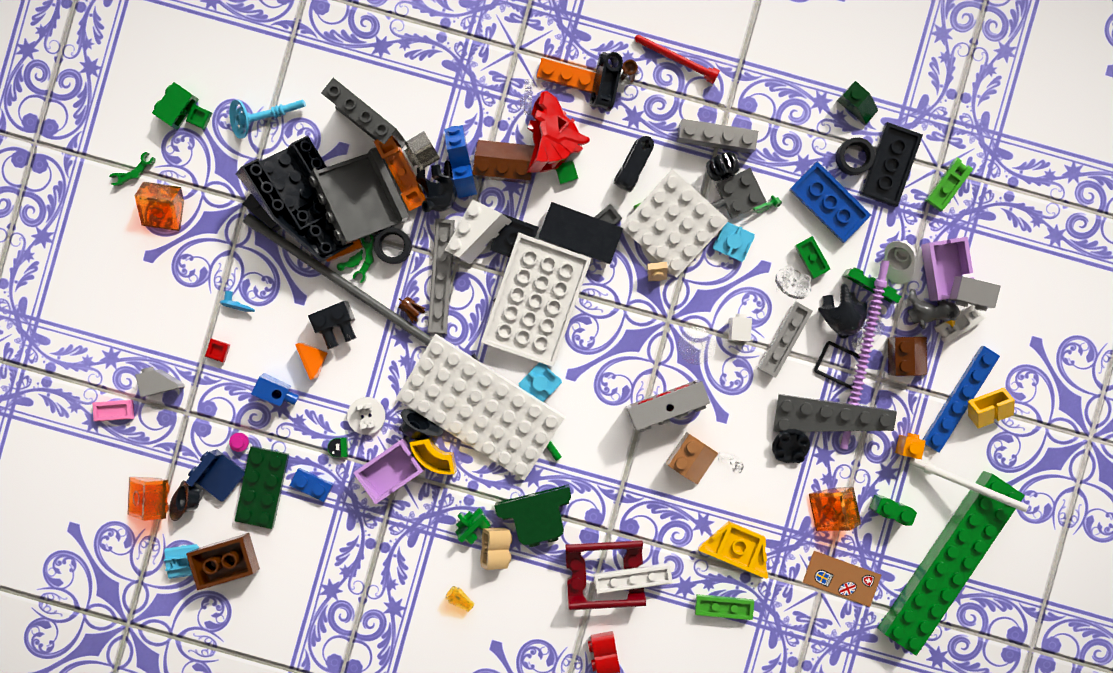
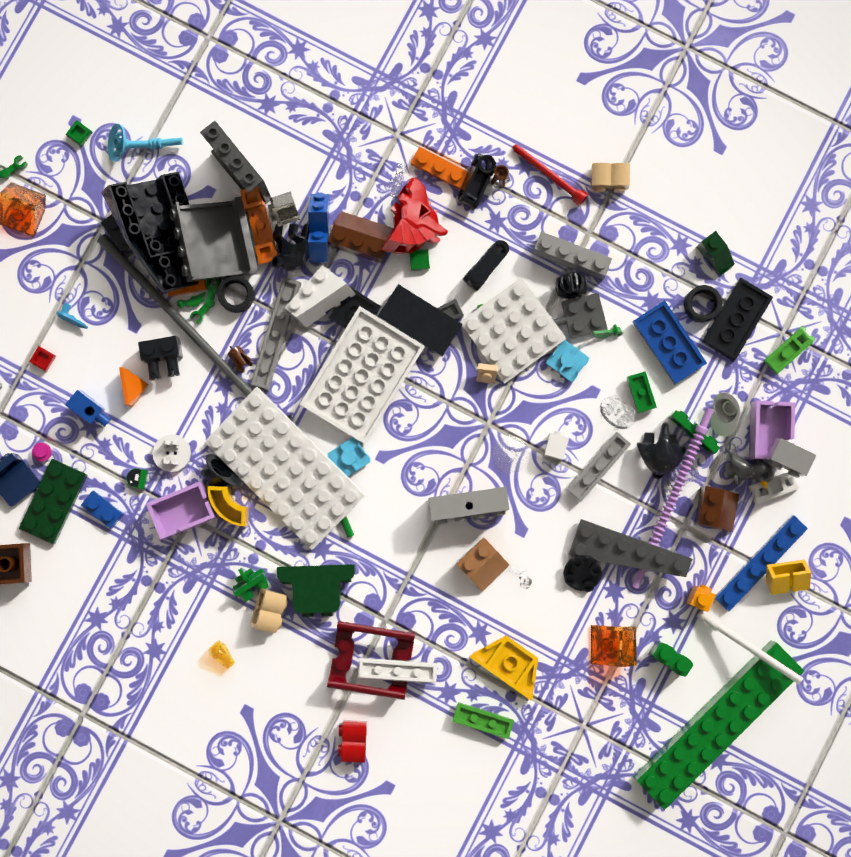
camera: 15 degrees right, 5 degrees down
(174, 105) = (58, 117): green brick -> none
(738, 47) = (610, 176): none -> tan brick
(821, 357) = (631, 492): black piece -> none
(841, 578) = (607, 718): medium nougat sticker -> none

